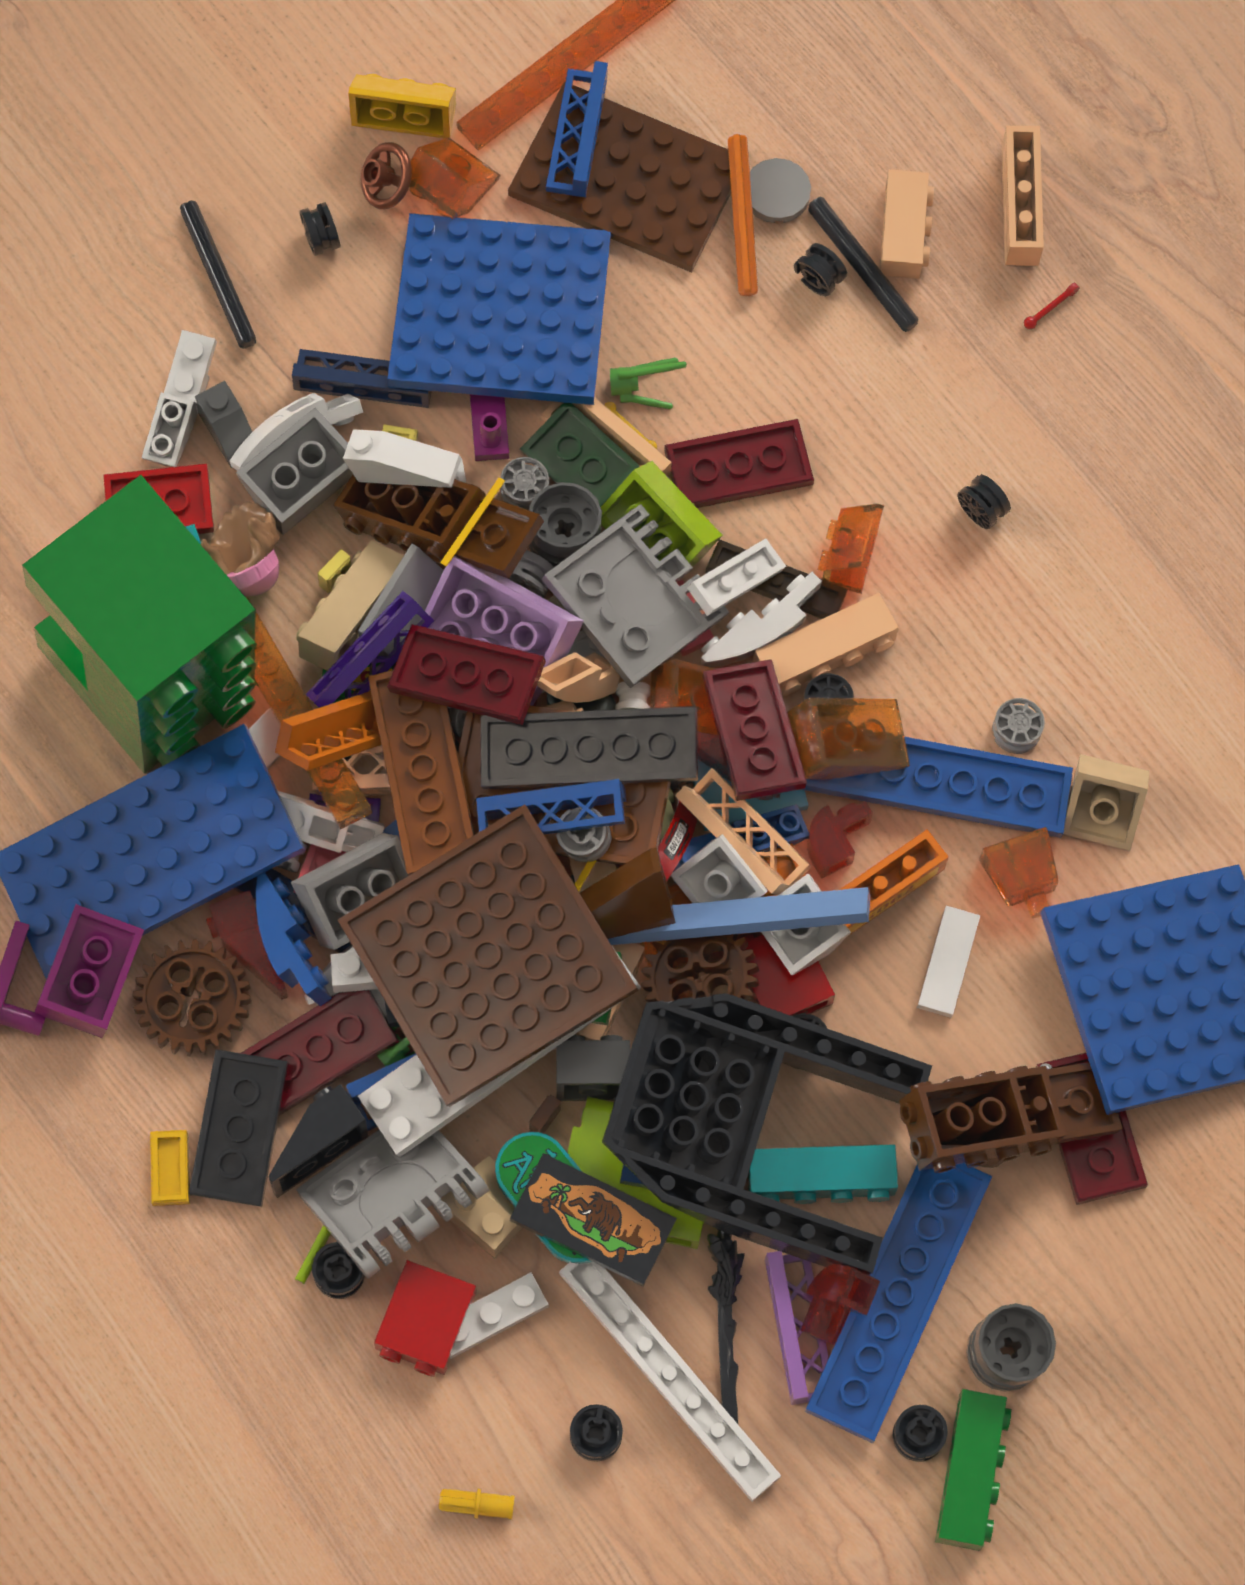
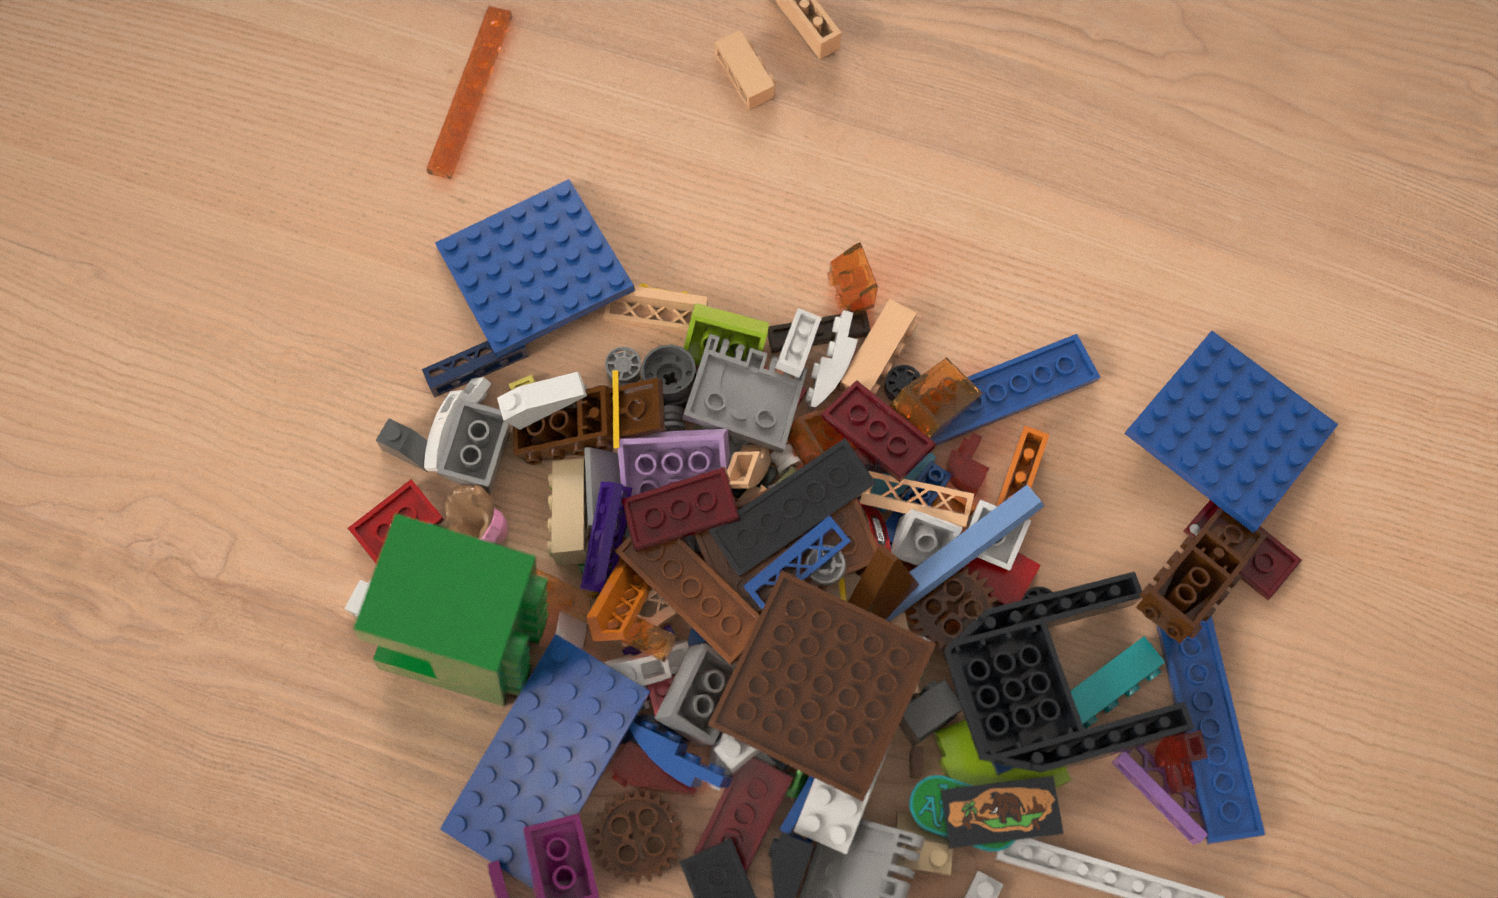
camera: 30 degrees left, 0 degrees up
(177, 405) = (365, 450): white slope -> none
(218, 274) = (336, 354): black axle -> none
(315, 231) = (384, 285): black wheel -> none
(330, 572) = (541, 496): light yellow tile -> none
(379, 173) = (399, 229): copper piece -> none
(402, 105) = (385, 178): yellow slope -> none
(450, 177) = (445, 206): clear orange slope -> none
(489, 427) = (576, 345): magenta piece -> none
(579, 453) = (645, 326): dark green tile -> none
(589, 130) = (514, 121): blue fence -> none
(625, 380) = (642, 264): bright green plant -> none
(645, 183) = (555, 140): reddish brown plate -> none
(723, 1290) = (1102, 799): black sword -> none
(741, 463) = (747, 272): dark red tile -> none
(742, 215) = (644, 121): orange axle -> none
(779, 190) = (653, 95): light grey tile -> none
(820, 270) = (713, 126): black wheel -> none
(863, 264) = (736, 108): black axle -> none
(920, 1433) = (1286, 809): black wheel -> none
(948, 961) = (1087, 499): white tile -> none
(971, 1470) = (1333, 812): green brick -> none
(984, 501) = (910, 204): black wheel -> none
(1016, 1327) = (1304, 717): dark grey wheel -> none
(1017, 726) = (1025, 329): light grey wheel -> none
(1022, 869) = (1093, 414): clear orange torso -> none
(1031, 321) = (859, 84): red hinge -> none
(1105, 802) = (1111, 340): tan slope -> none

